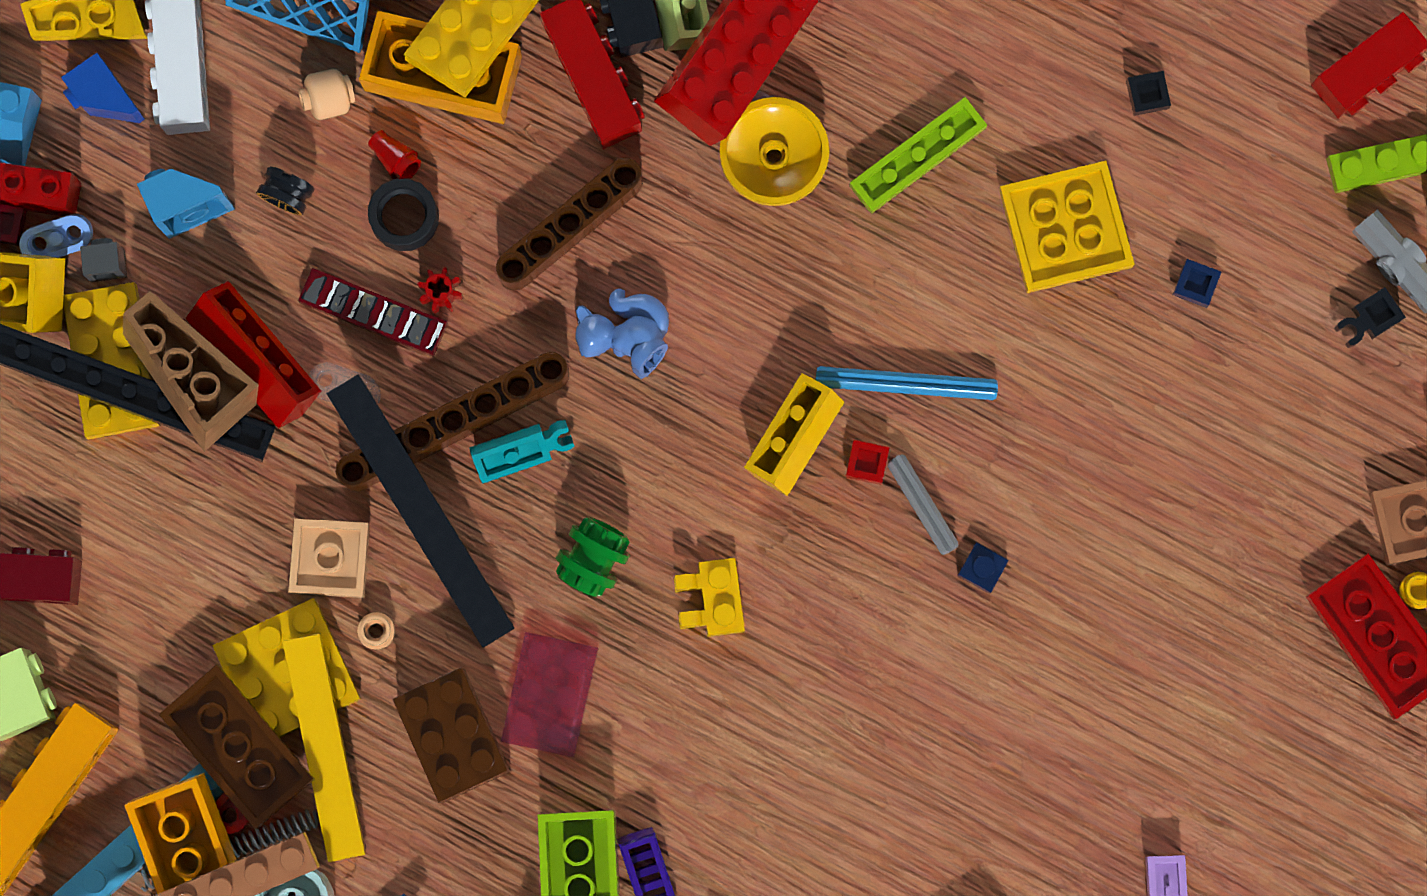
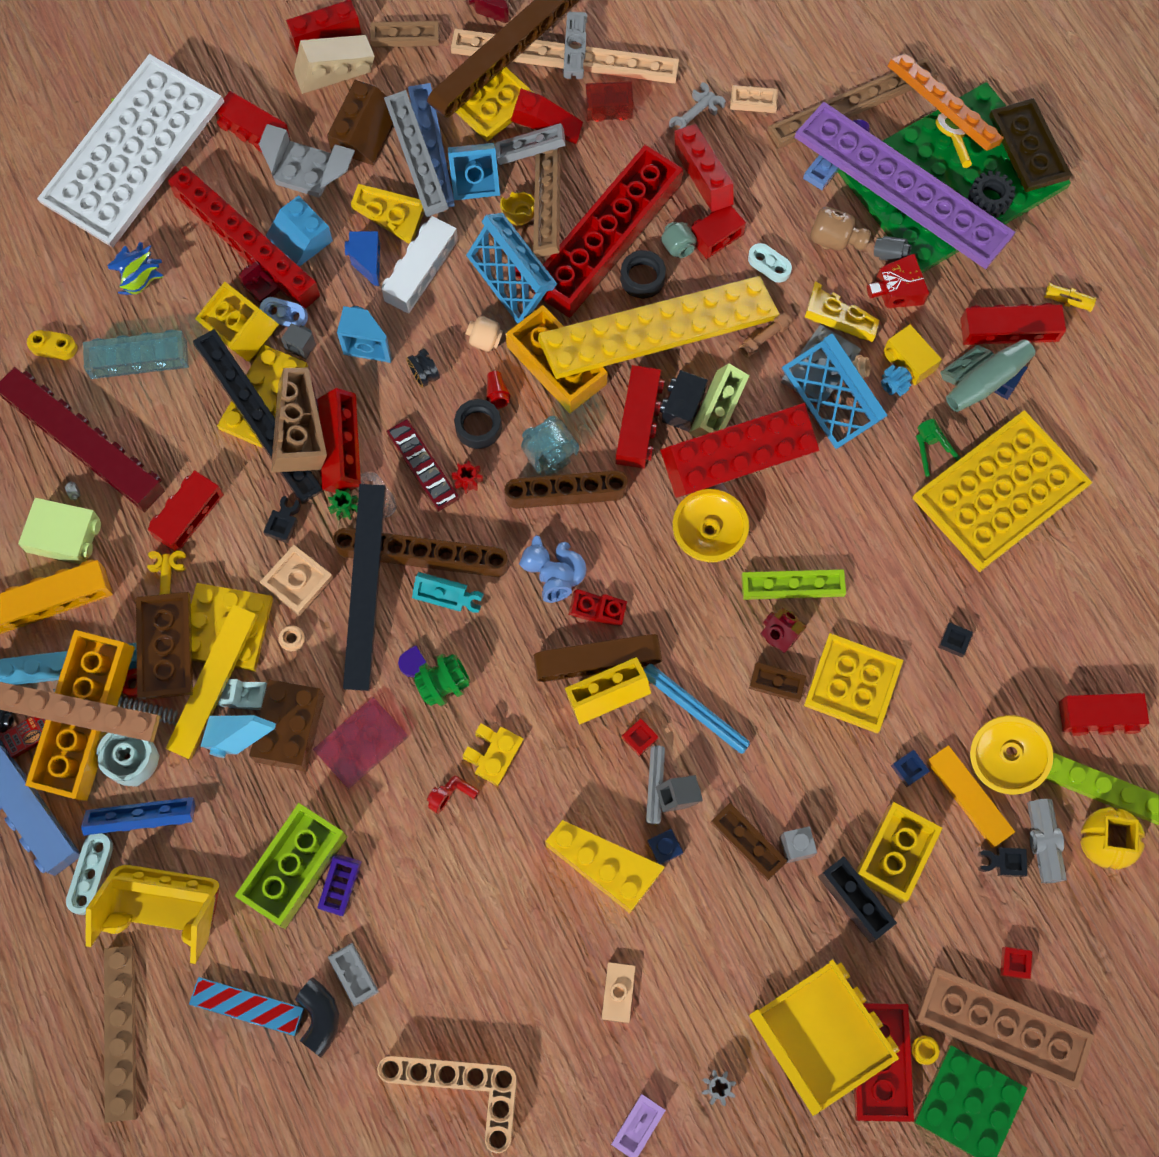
camera: 30 degrees right, 10 degrees down
(130, 569) = (185, 511): none -> red brick
(154, 647) = (165, 565): none -> yellow bar
(259, 503) = (282, 523): none -> black plate
(325, 431) = (340, 499): none -> green gear
(373, 735) = (243, 695): none -> light aqua slope
(400, 790) = (234, 733): none -> medium azure slope
(512, 185) = (549, 445): none -> clear light blue brick
(539, 559) = (410, 662): none -> dark purple tile
(689, 691) = (440, 796): none -> red plate
(709, 342) = (597, 608): none -> red slope
(751, 403) = (595, 657): none -> reddish brown beam
(938, 635) = (609, 867): none -> yellow wedge
(944, 220) = (782, 629): none -> dark red brick
(958, 496) = (679, 793): none -> dark grey brick
(979, 286) = (777, 682): none -> reddish brown plate
(1044, 766) = (618, 992): none -> light nougat plate
(1073, 495) = (748, 841): none -> reddish brown plate
(1131, 461) = (798, 844): none -> light grey brick
(1235, 789) = (725, 1092): none -> light grey gear
(1238, 477) = (857, 900): none -> black brick
(1247, 392) = (898, 852): none -> yellow brick
(1284, 268) = (970, 796): none -> light orange tile
(1302, 654) = (825, 1037): none -> yellow panel
(1314, 206) = (1009, 772): none -> yellow dish

